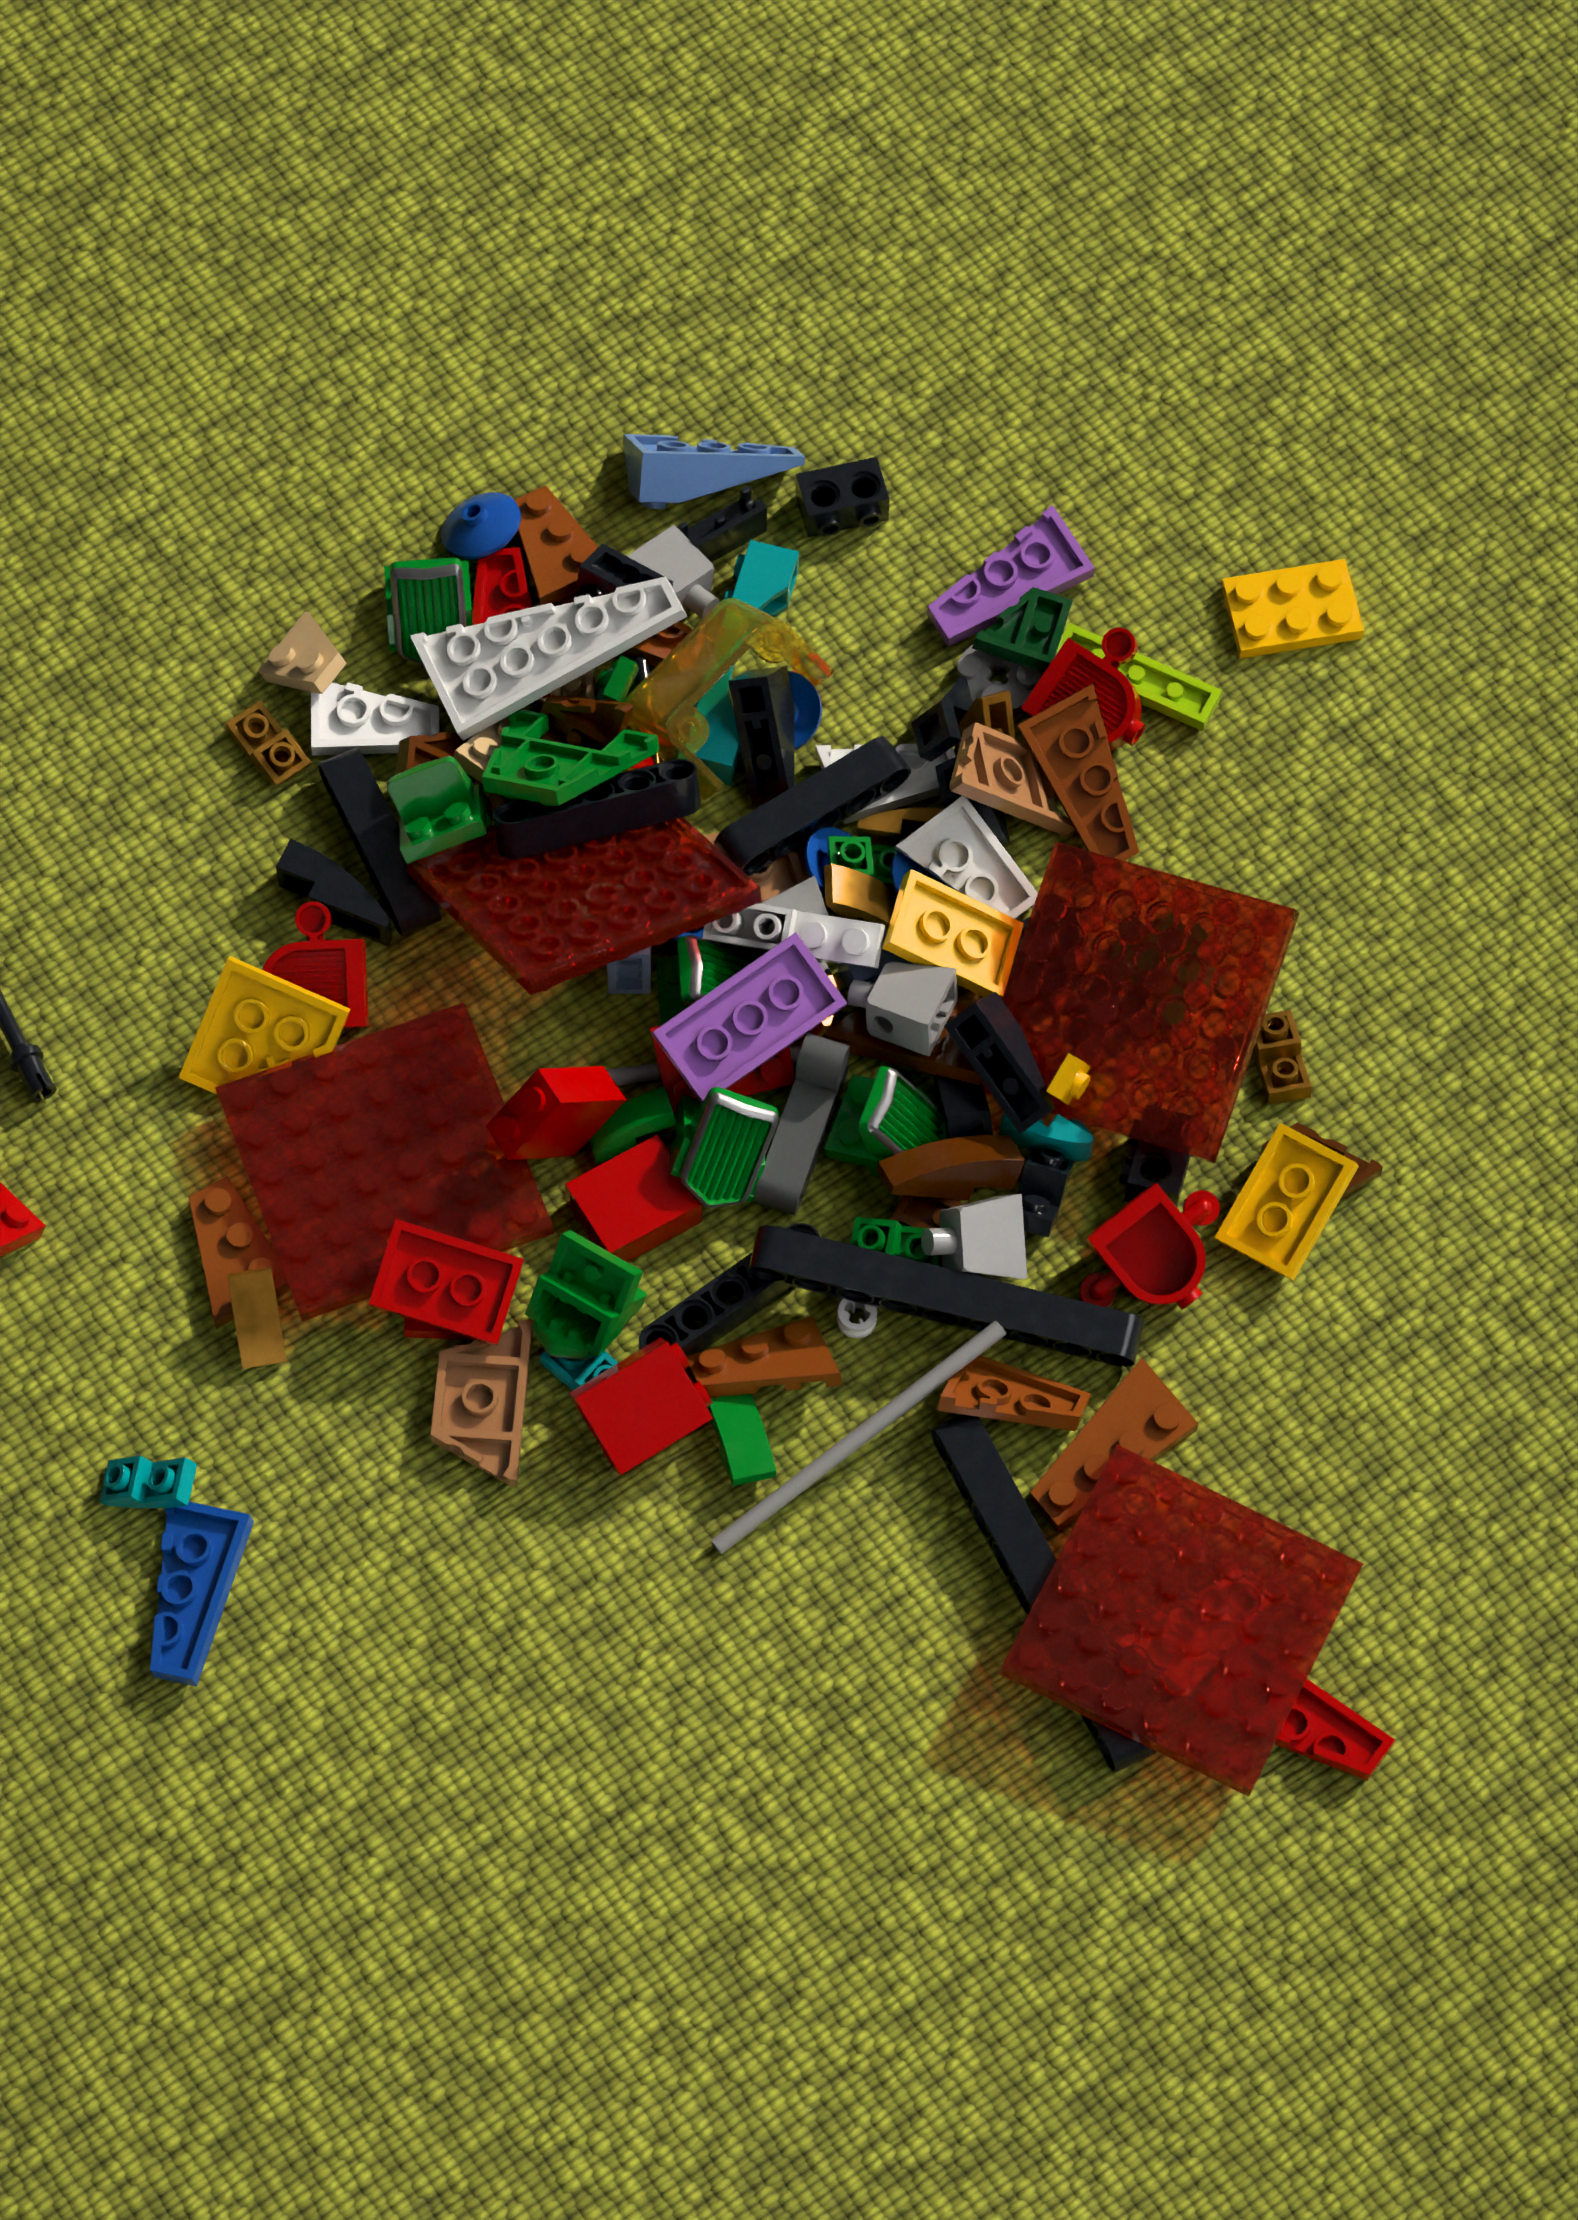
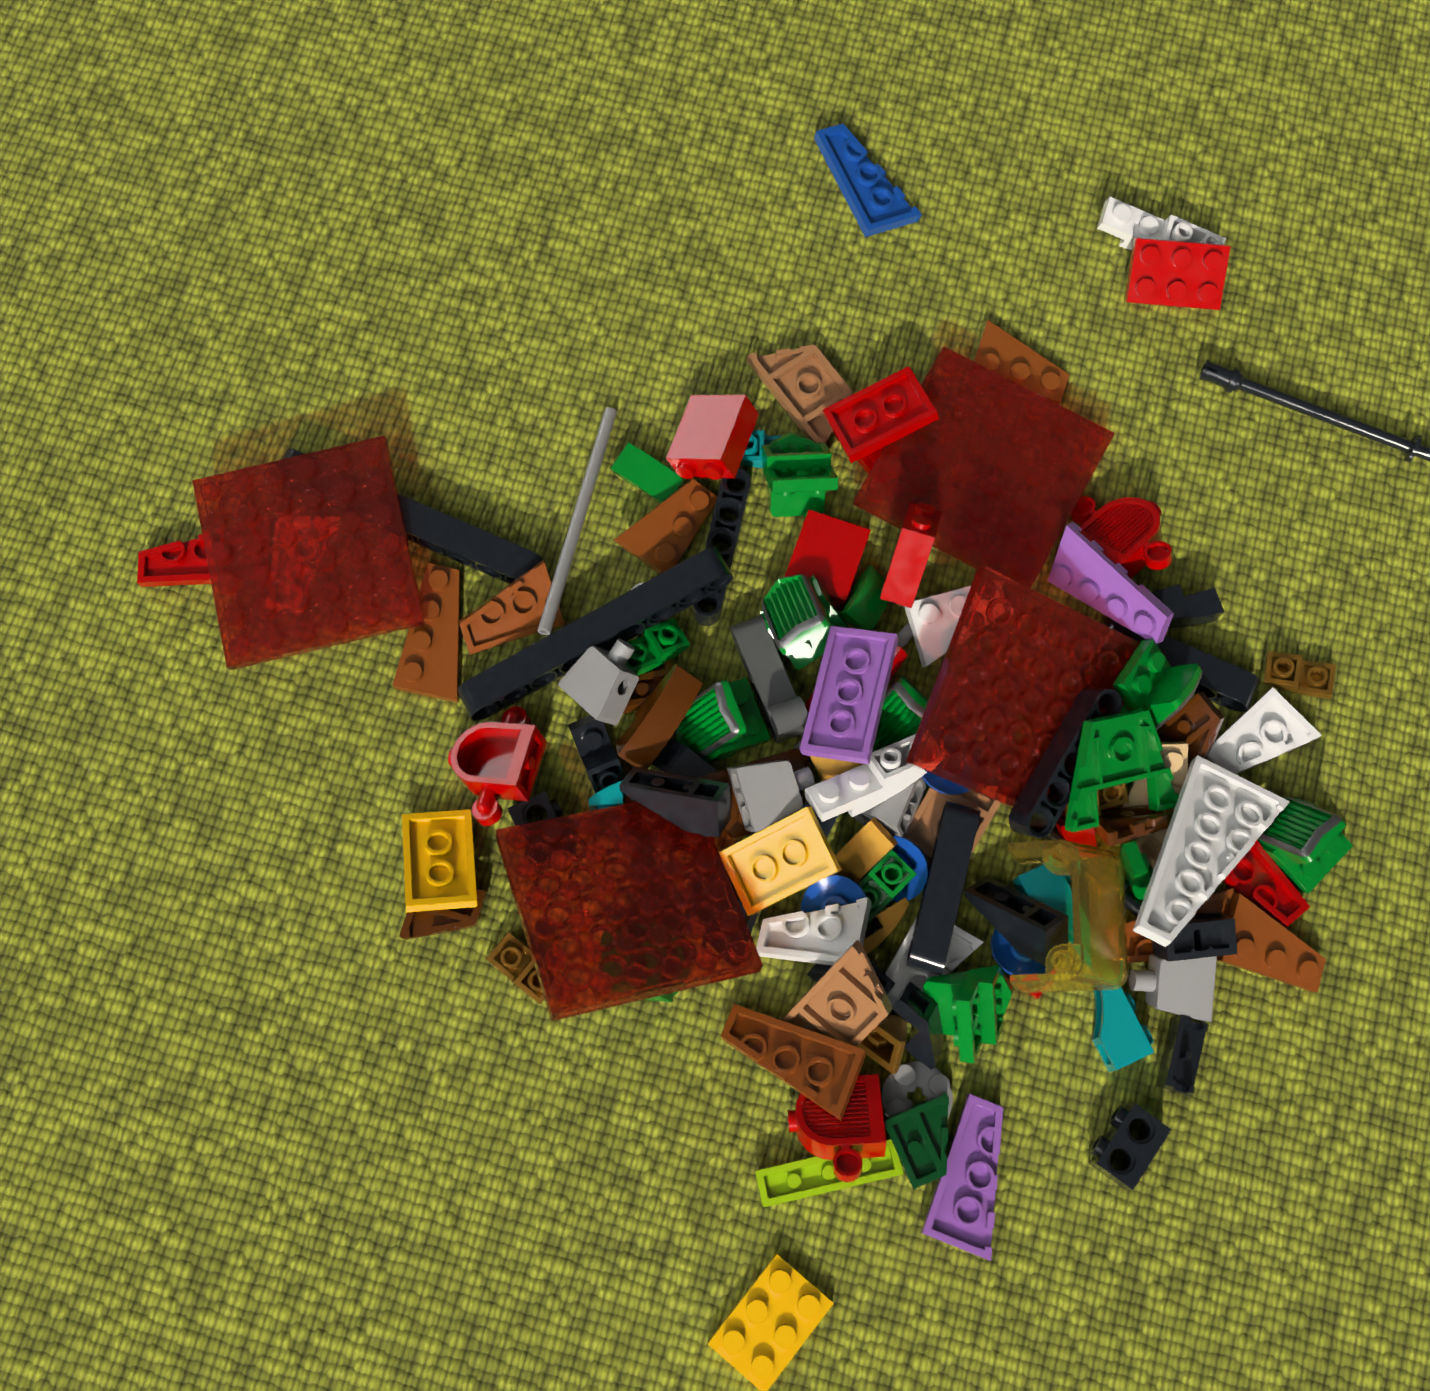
camera: 140 degrees right, 10 degrees up
(148, 1484) = (937, 213): teal slope -> none
(256, 1317) = (968, 331): pearl gold slope -> none
(258, 1025) = (1125, 482): yellow plate -> none
(303, 658) = (1336, 741): tan wing -> none
(387, 932) = (1105, 586): none -> medium lavender wing
(481, 525) = (1326, 927): blue dish -> none
(548, 1043) = (934, 622): none -> white wing
(674, 472) = (1244, 1081): medium blue wedge -> none
(883, 697) = (971, 1006): none -> green piece
(1070, 1079) = (623, 813): yellow plate -> none

